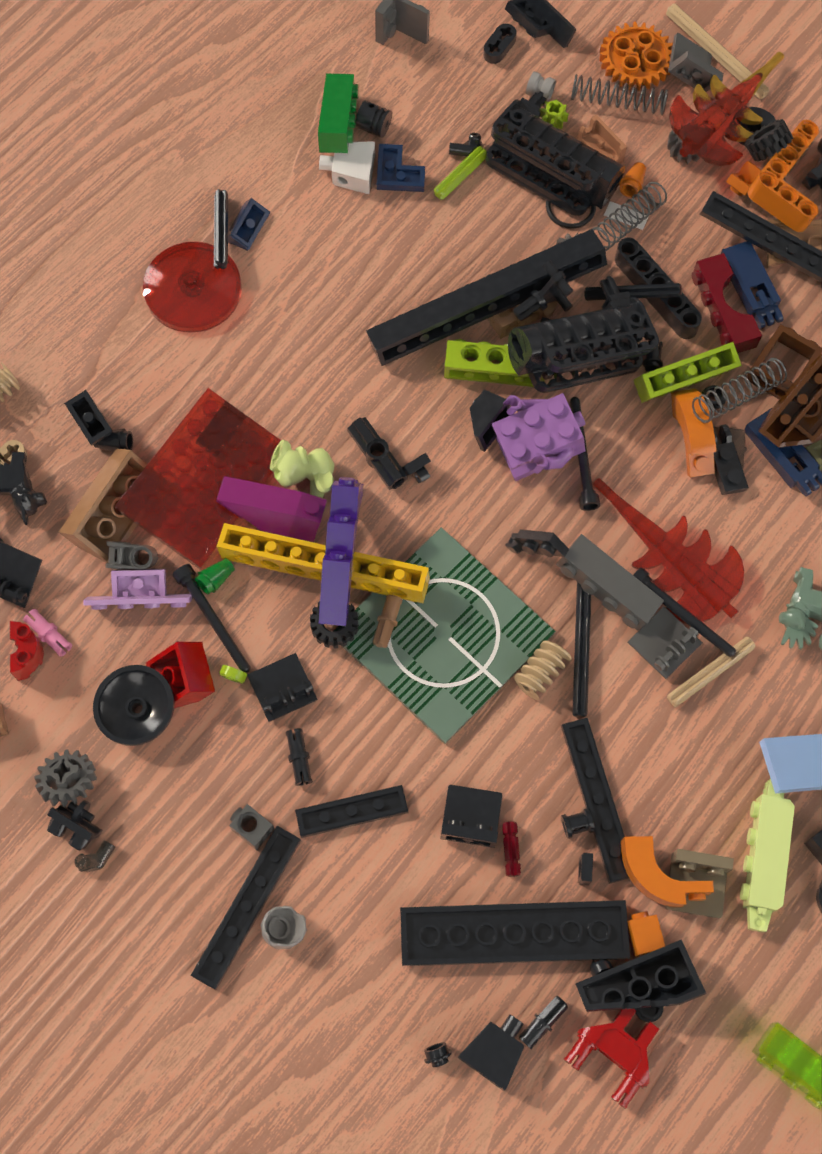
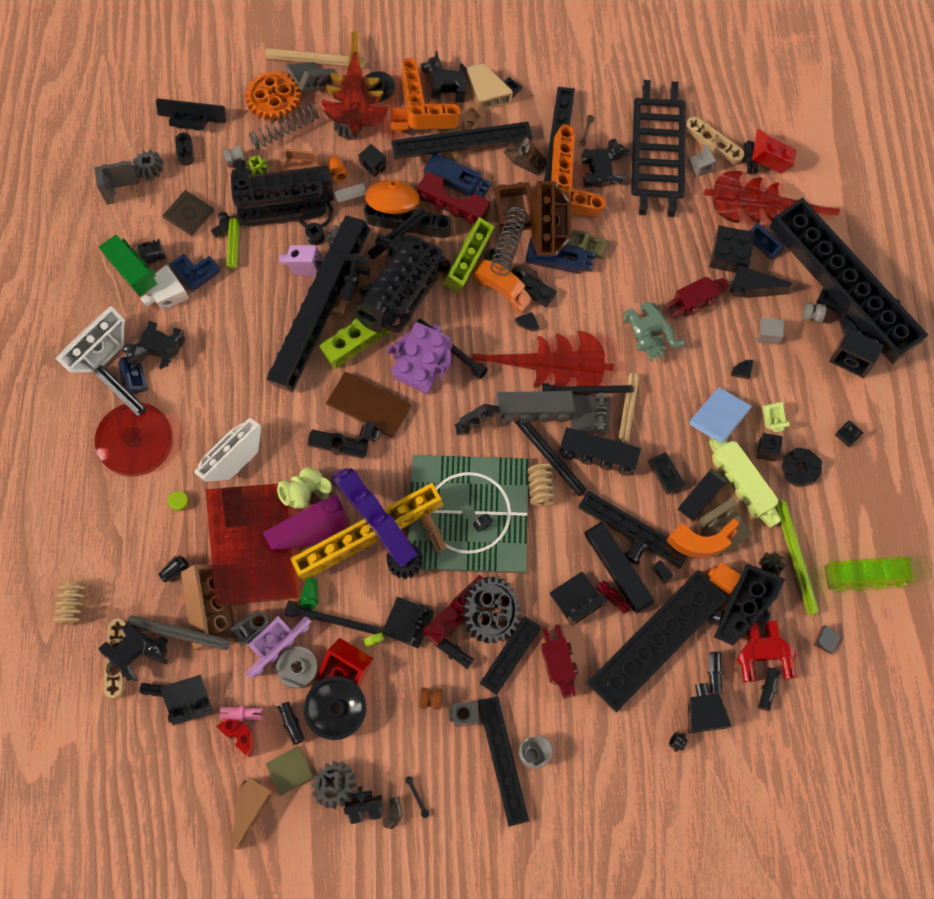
camera: 40 degrees left, 0 degrees up
(41, 727) = (289, 770): none -> olive piece
(59, 503) = (179, 632): none -> dark grey axle
(82, 683) = (291, 723): none -> black pin
(89, 417) = (148, 568): black slope -> none
(125, 886) = (424, 812): none -> black hinge
(135, 650) = (301, 678): none -> light grey plate
(177, 380) = (178, 501): none -> lime tile
(233, 780) = (431, 698): none -> dark orange wheel
(237, 165) = (95, 343): none -> white wedge
(265, 375) = (230, 453): none -> white wedge
(295, 211) = (156, 344): none -> black animal
(341, 720) = (449, 618): none -> dark red slope
(352, 763) = (488, 629): none -> black gear
(391, 861) = (559, 663): none -> dark red hinge
(444, 109) = (188, 213): none -> clear smoke tile
(445, 654) = (482, 522): none -> black tile
(446, 441) = (368, 403): none -> reddish brown tile
(448, 31) = (148, 164): none -> dark grey gear
(484, 411) = (380, 367): black slope -> none
(511, 241) = (302, 260): none -> lavender torso
(544, 824) = (619, 567): none -> black beam
(551, 233) = (318, 237): none -> black wheel
(584, 1092) = (769, 689): none -> black pin
(630, 214) = (361, 188): dark grey piece -> none
(636, 688) = (599, 451): none -> black brick
(663, 251) = (392, 196): none -> orange dish
(679, 199) = (373, 160): none -> black brick
(687, 493) = (527, 322): none -> black tile
(687, 773) = (666, 473): none -> black plate
(698, 1102) = (827, 639): none -> slope
(706, 828) = (702, 494): none -> black beam
(712, 967) = (772, 563): none -> black gear
(747, 987) = (797, 558): none -> lime axle
(769, 140) = (395, 87): black tyre -> none

